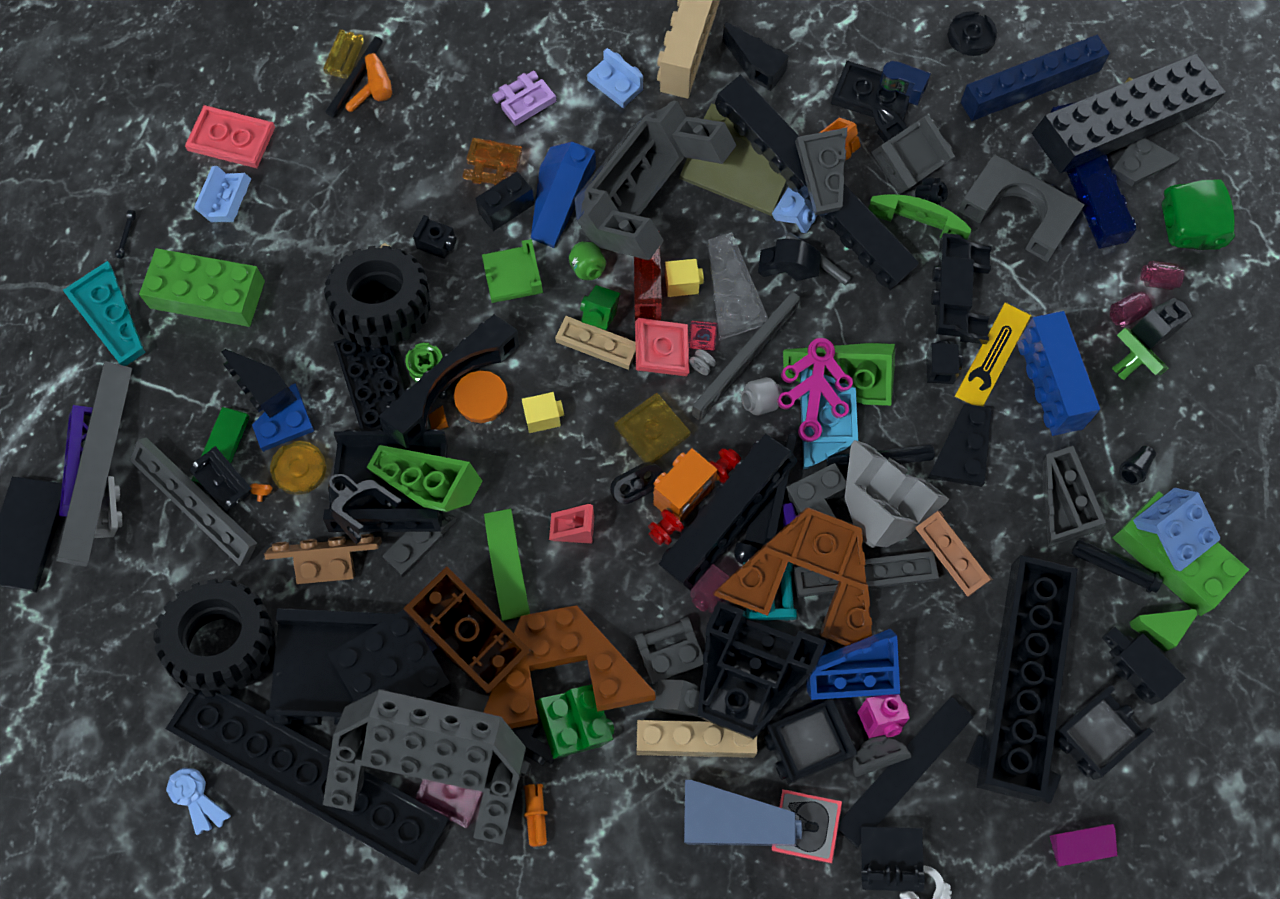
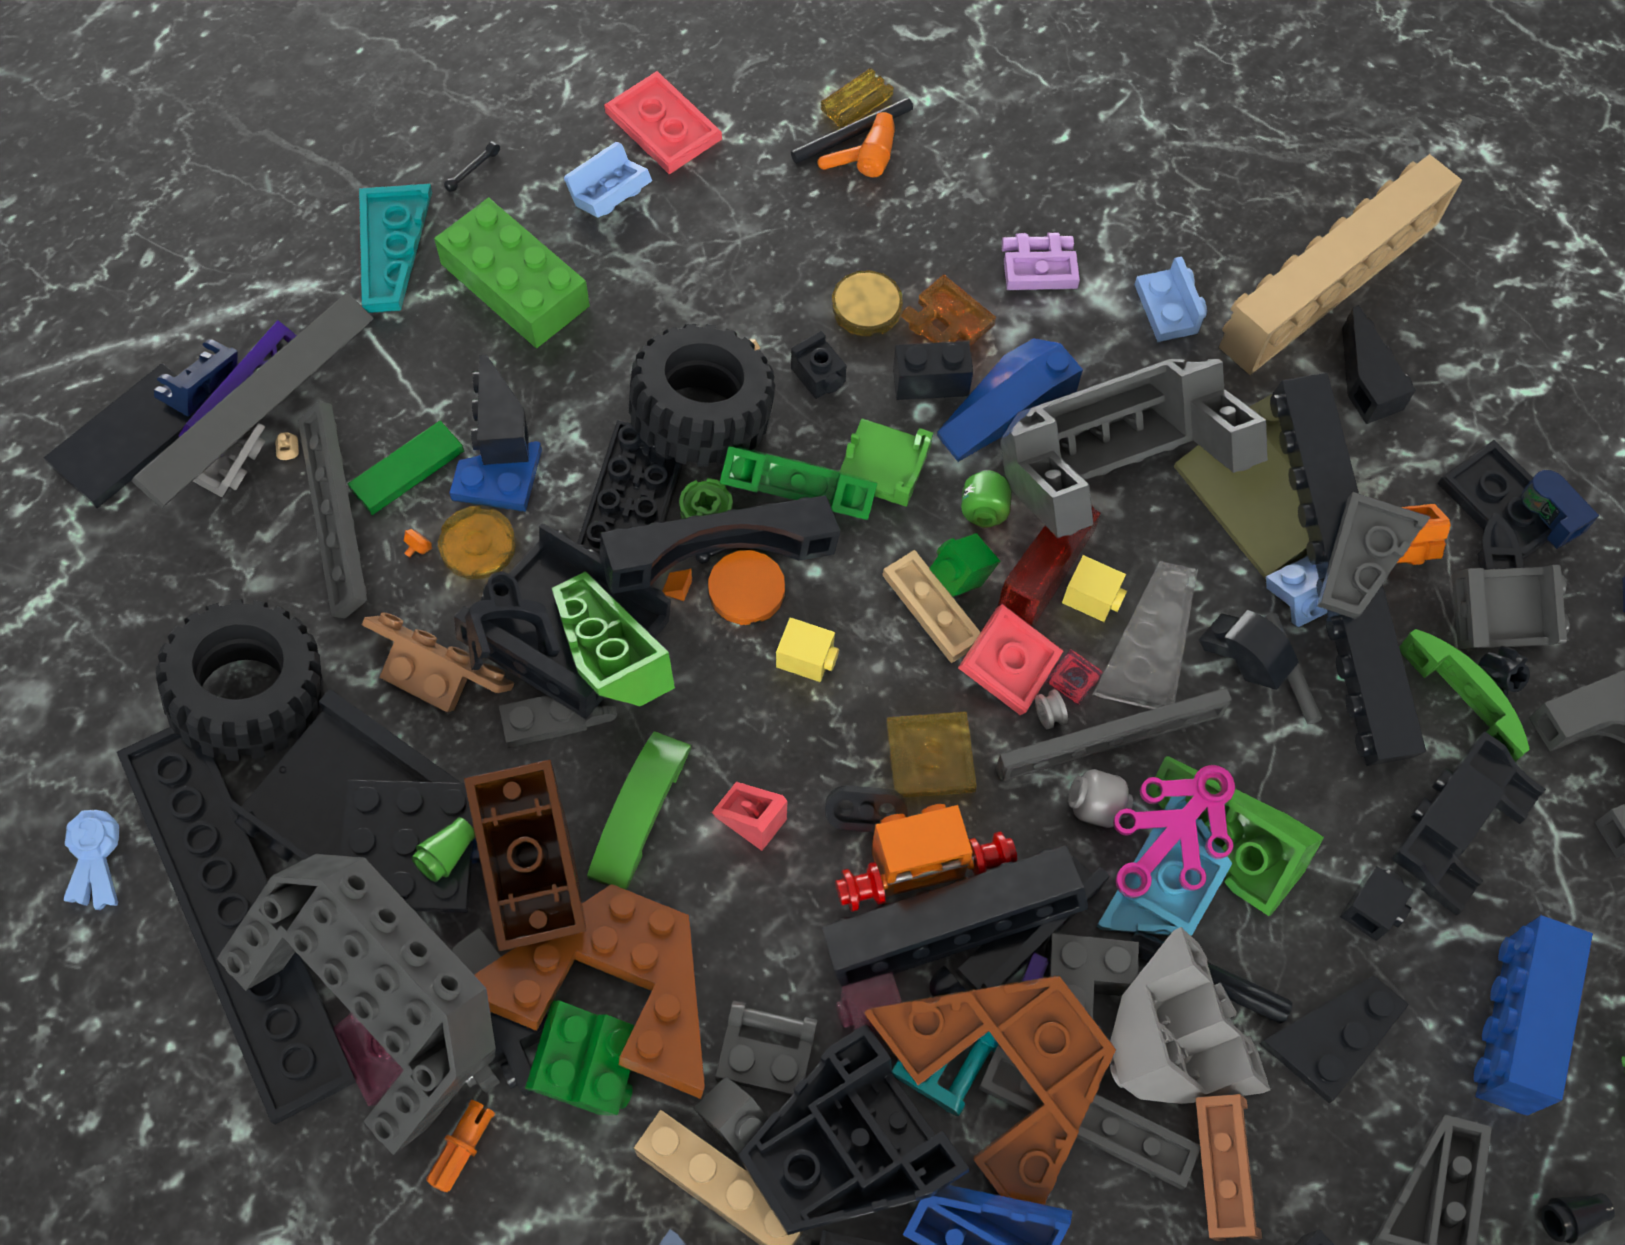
camera: 30 degrees right, 5 degrees down
(46, 472) = (197, 382): none -> dark blue hinge
(133, 480) = (286, 446): none -> tan rock
(220, 479) = (377, 501): black hinge -> none
(416, 658) = (443, 850): none -> bright green cone
(436, 181) = (867, 303): none -> pearl gold tile
(470, 314) = (797, 479): none -> green slope
(993, 355) = (1456, 937): yellow sticker -> none

